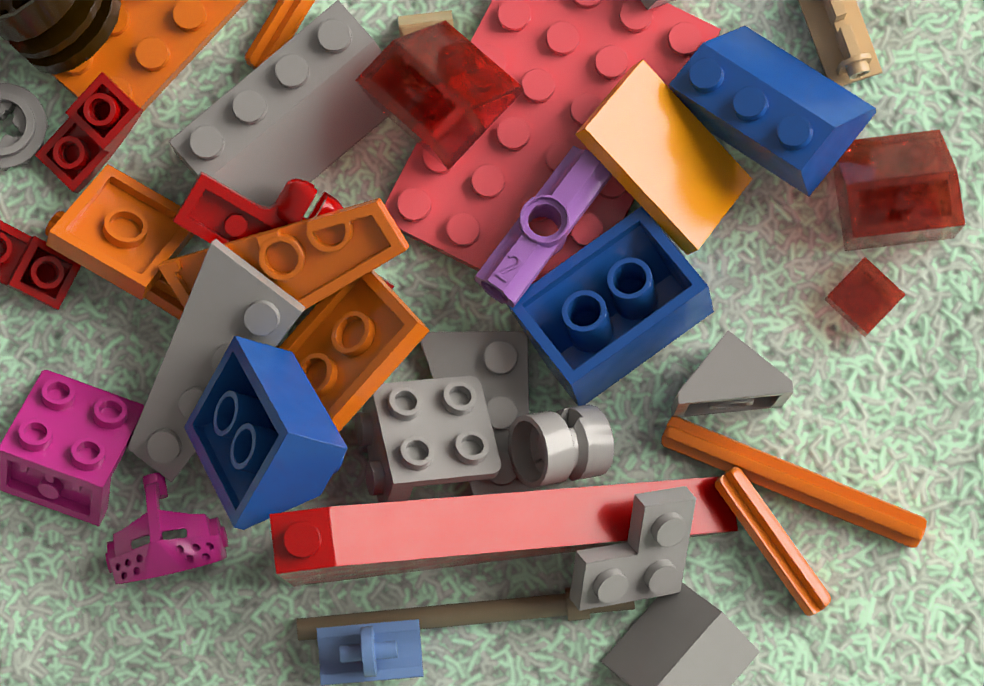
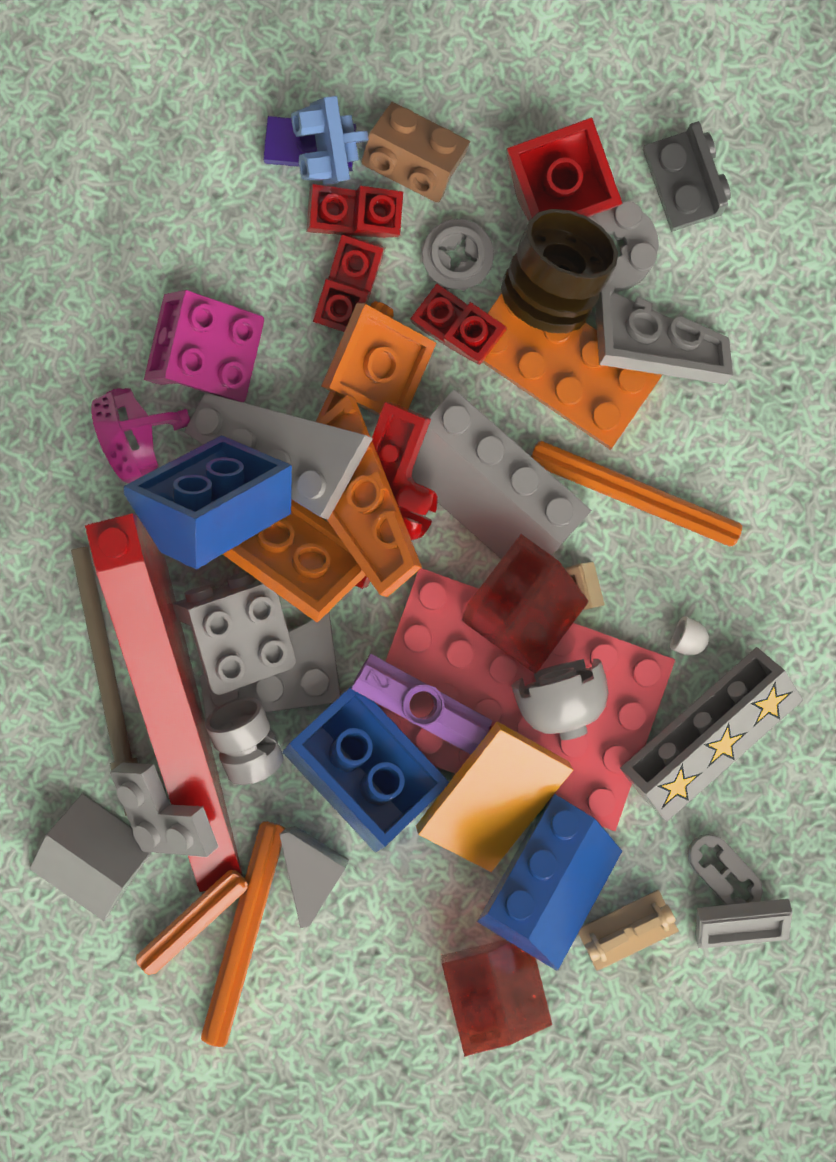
camera: 80 degrees right, 5 degrees up
(370, 652) = (63, 608): medium blue hips -> none
(556, 57) = (563, 698): none -> light grey cylinder
(864, 297) = (402, 976): clear red plate -> none

